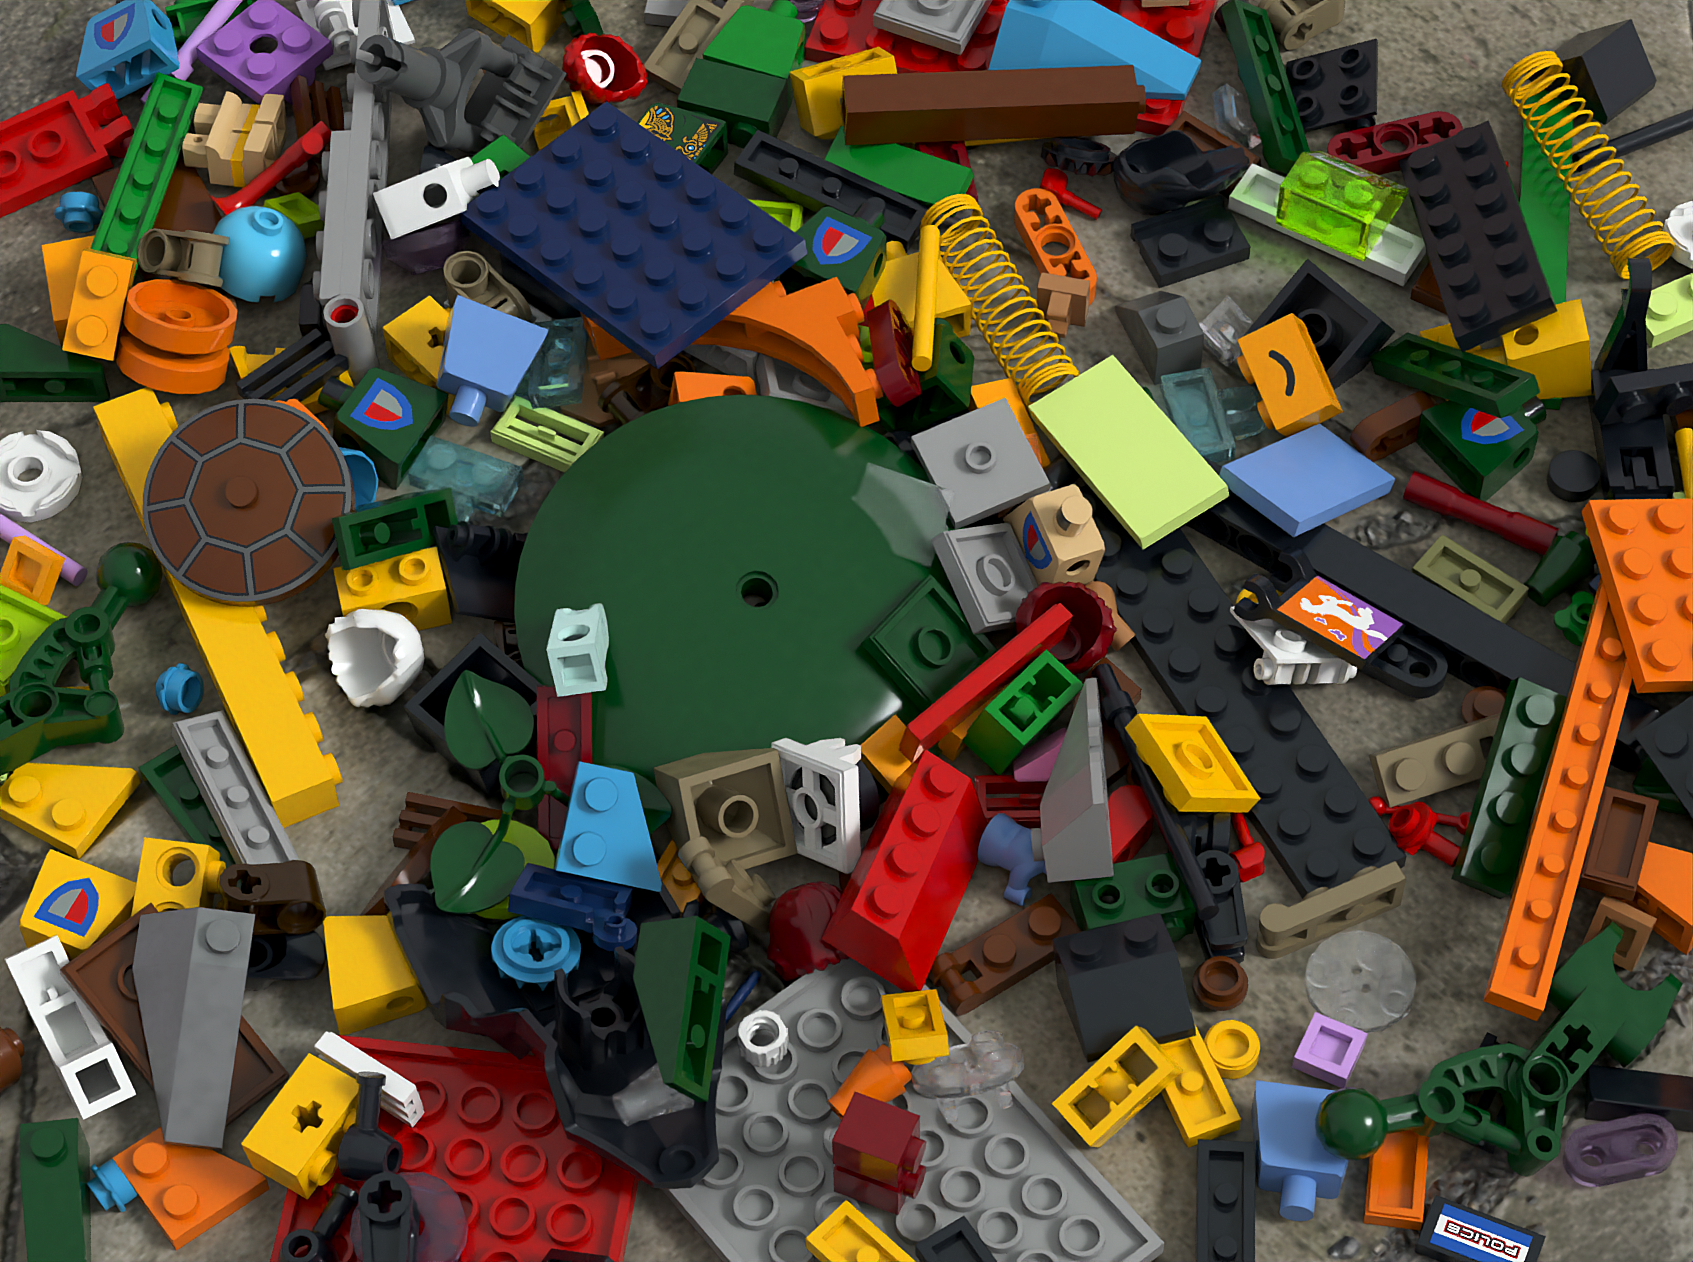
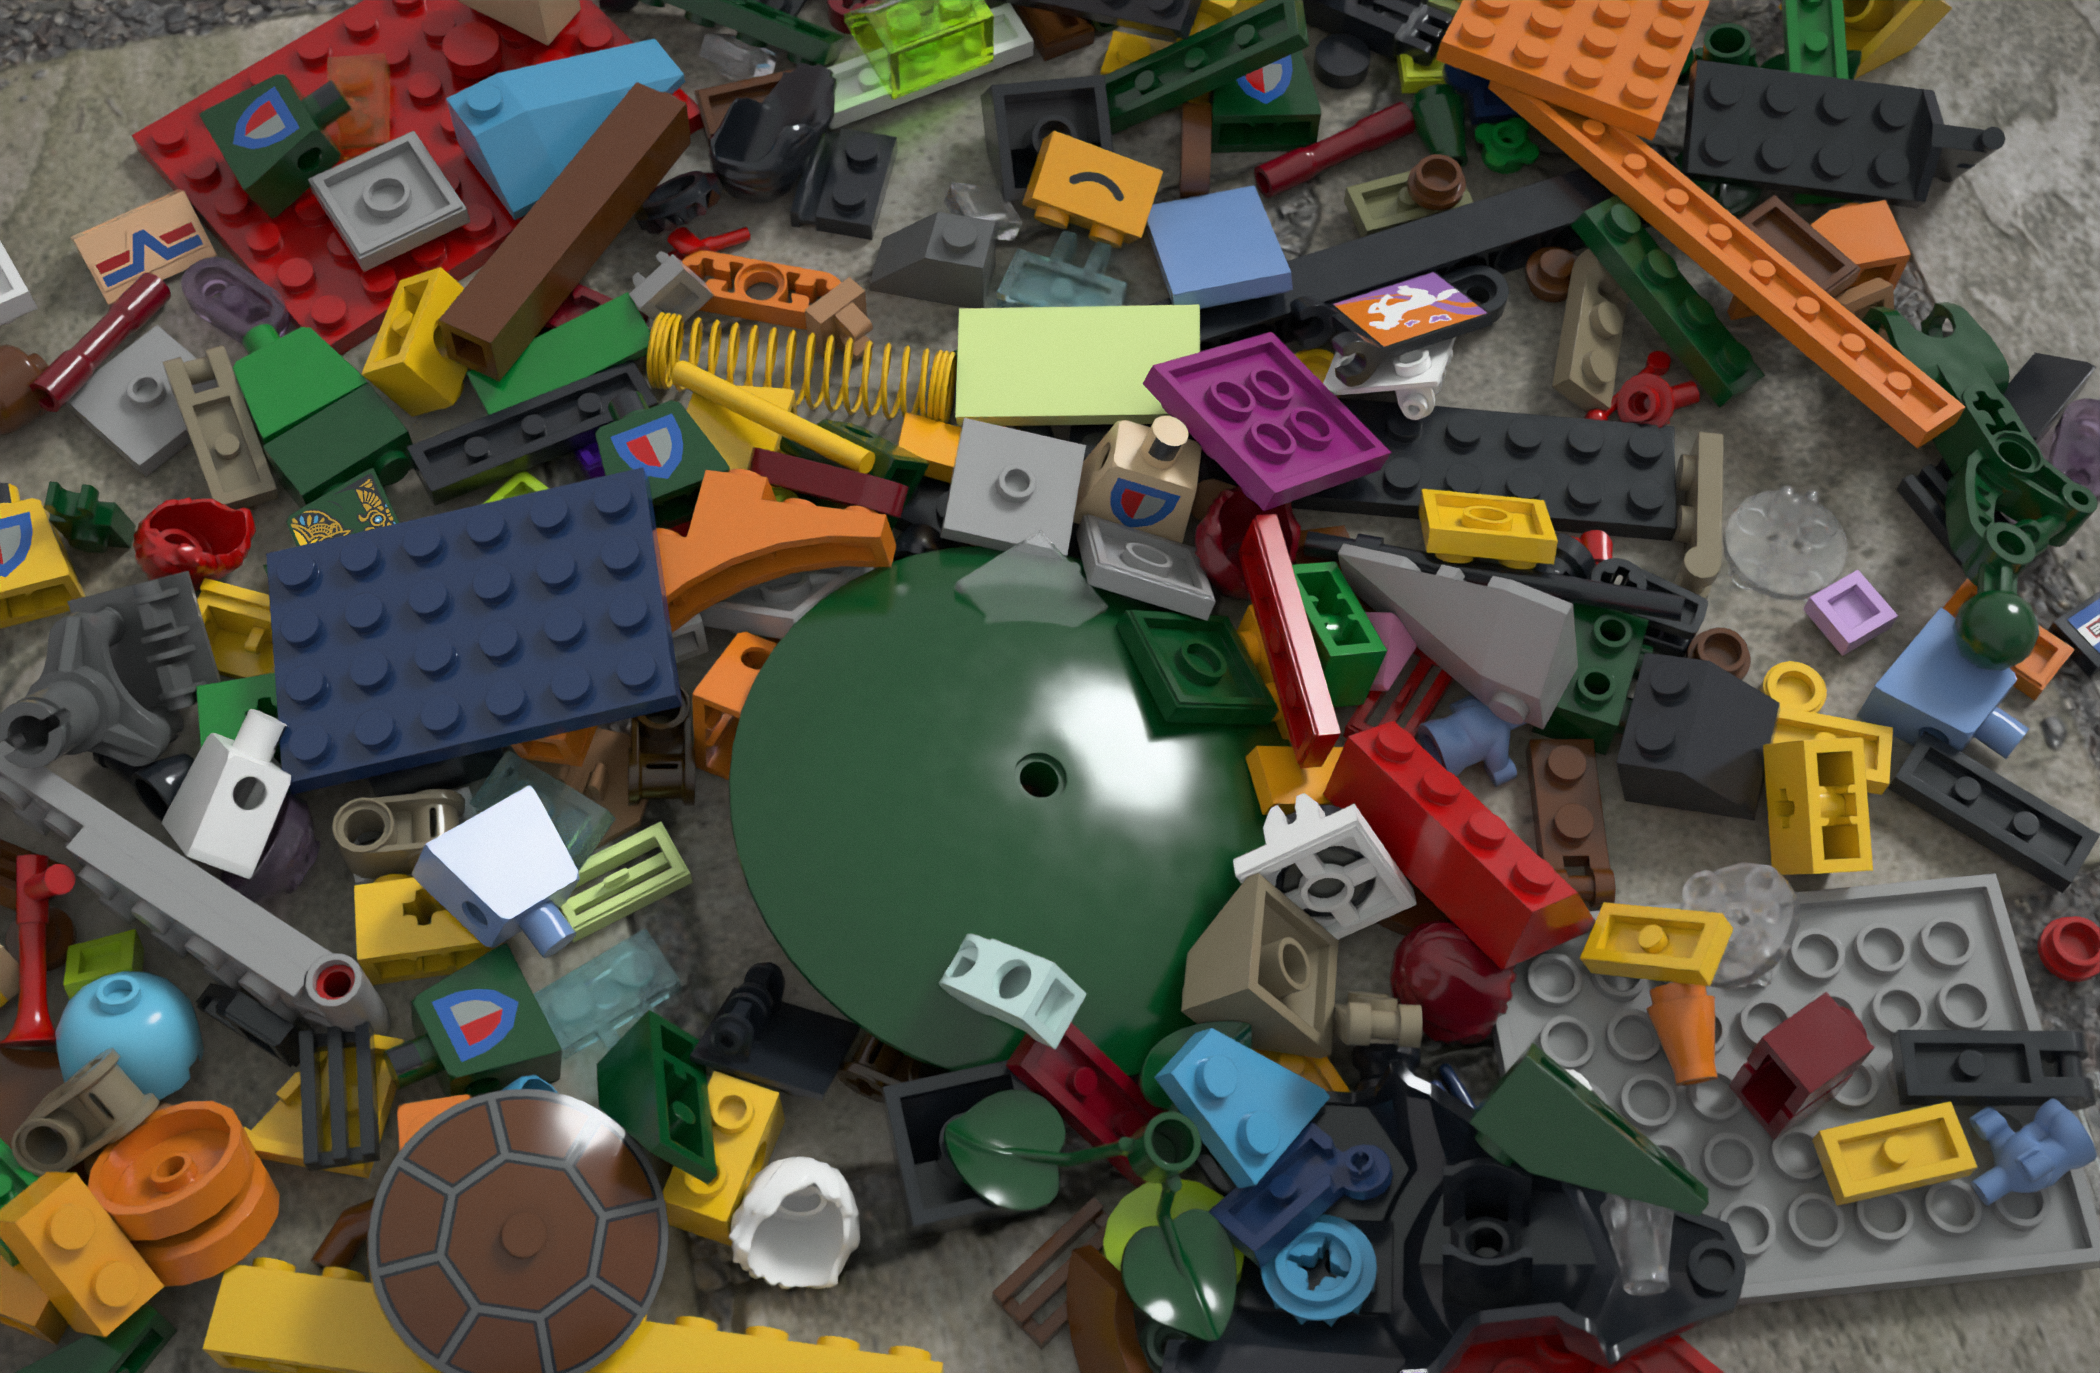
camera: 60 degrees left, 5 degrees up
(996, 191) = (670, 289): none -> light grey tile
(1160, 576) = (1266, 420): none -> magenta plate
(1486, 583) = (1436, 182): none -> reddish brown plate

